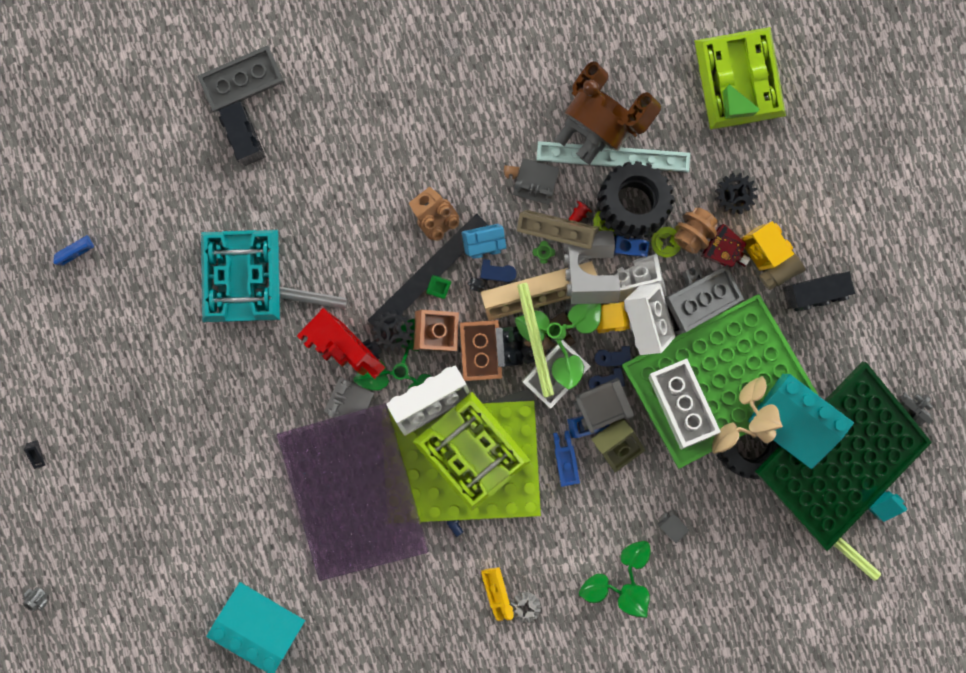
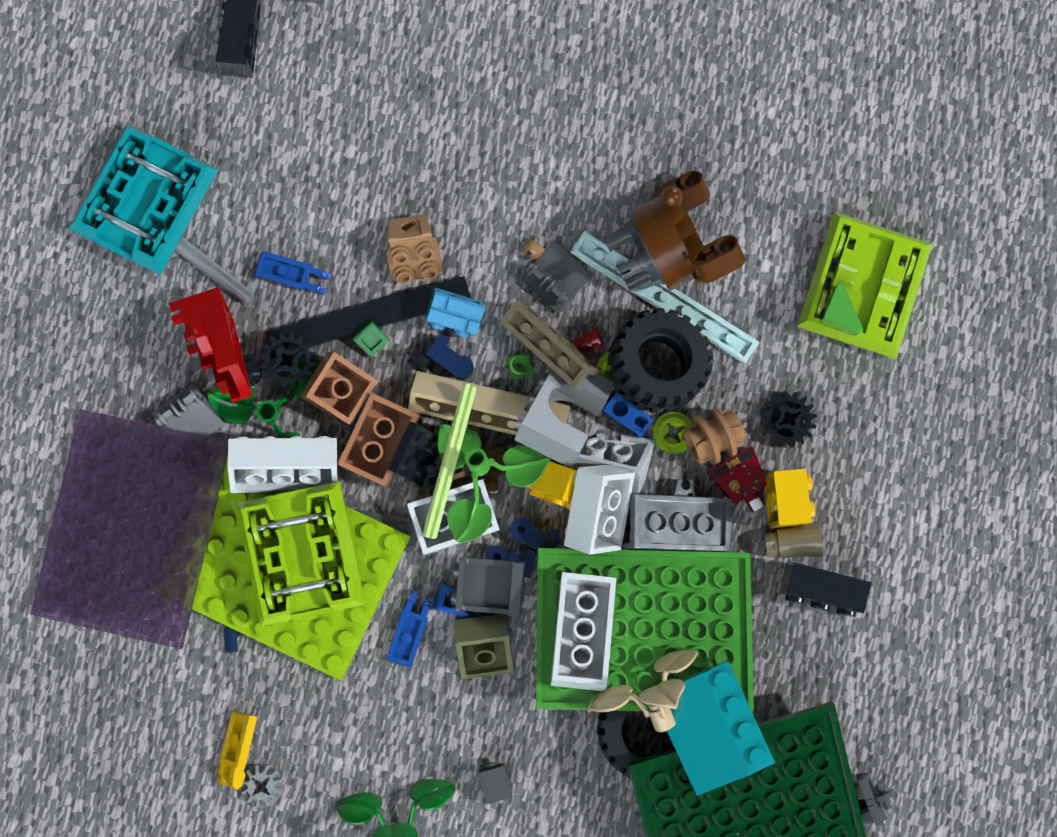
camera: 25 degrees right, 5 degrees down
(361, 272) = (289, 272): none -> blue hinge

